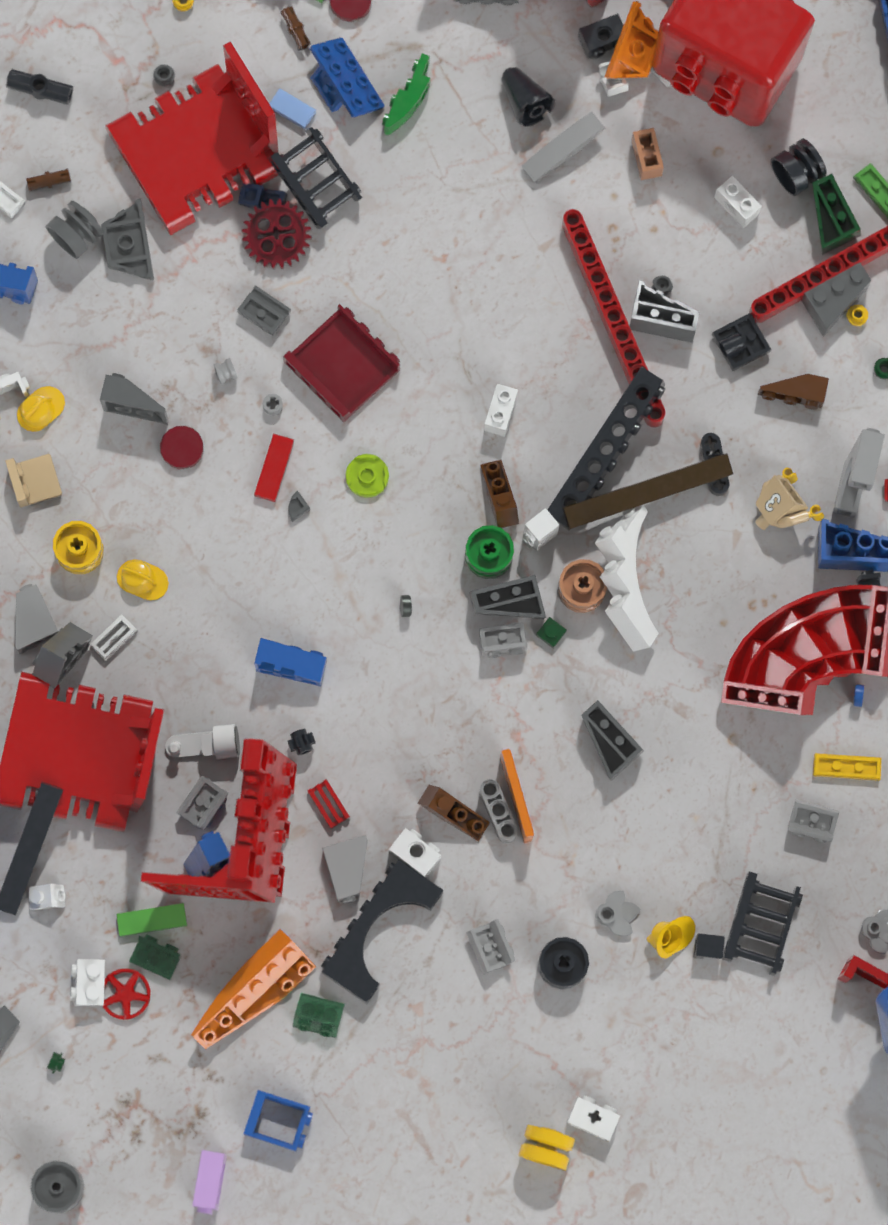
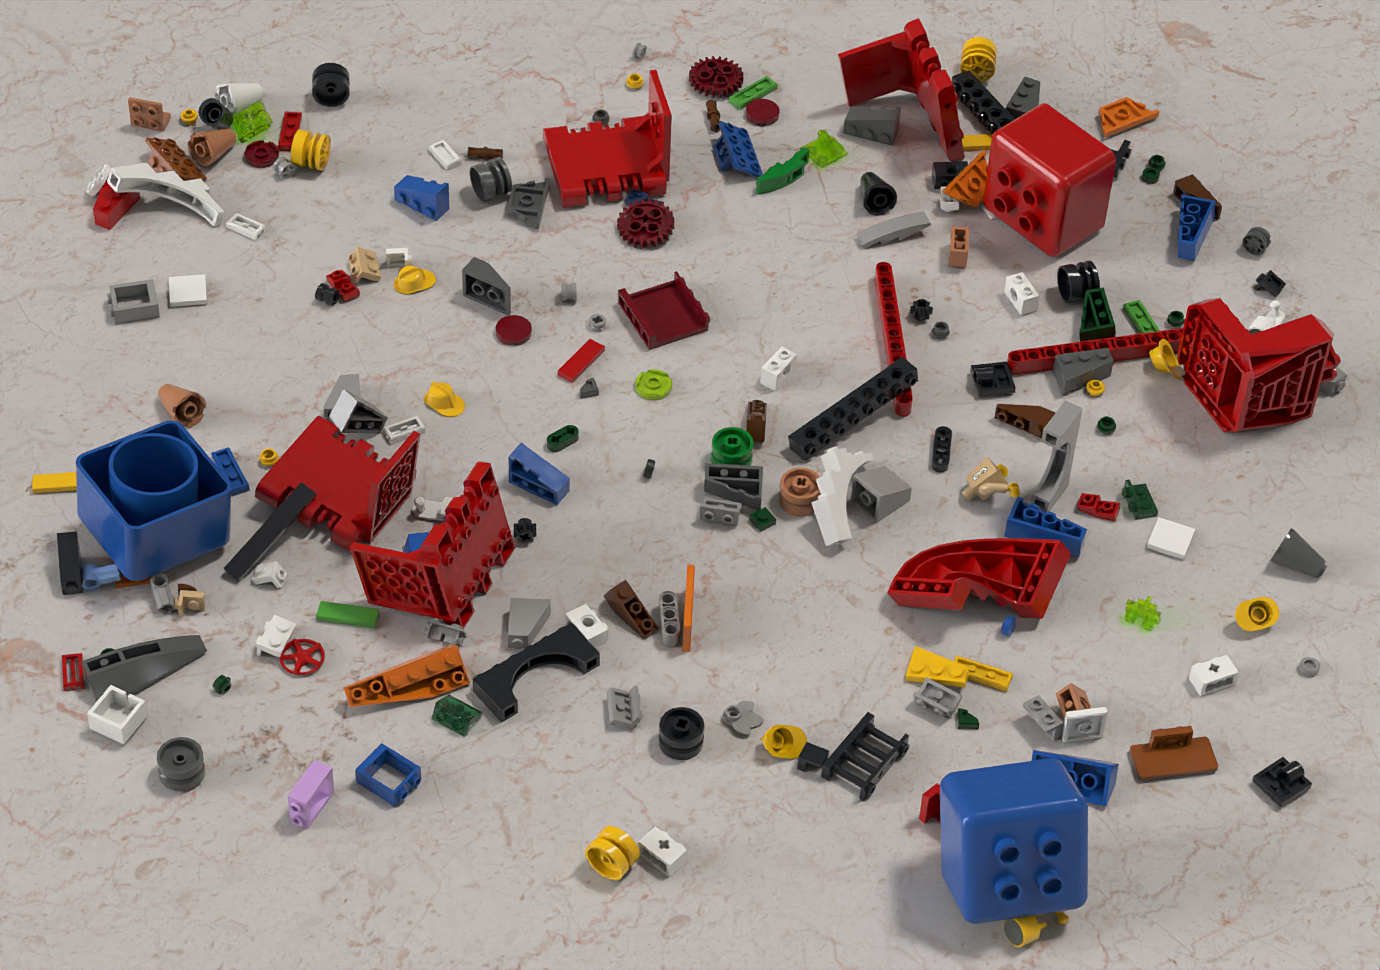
camera: 20 degrees right, 30 degrees down
(27, 82) = (503, 100): black piece -> none
(34, 480) = (387, 318): tan bracket -> none
(73, 535) = (402, 363): yellow wheel -> none
(155, 957) = (339, 638): clear green bracket -> none
(263, 310) = (615, 266): dark grey plate -> none
(275, 910) = (452, 633): none -> light grey hinge
(289, 588) = (562, 438): none -> dark green beam
(292, 108) = (690, 159): light blue tile -> none
(306, 197) = (677, 205): black fence -> none
(318, 787) = (527, 567): red tile -> none
(442, 41) = (825, 149): none -> clear neon green hinge
(540, 530) = (780, 445): white brick -> none
(611, 740) = (785, 595): dark grey wedge -> none
(632, 257) = (921, 310): none -> black gear
(647, 491) = (879, 442): dark brown tile -> none
(662, 316) = (933, 344): dark grey wedge -> none
(670, 556) = (879, 492): none -> light grey slope
(799, 782) = (936, 668): none -> yellow wing
(849, 834) = (966, 720): none -> dark green tile

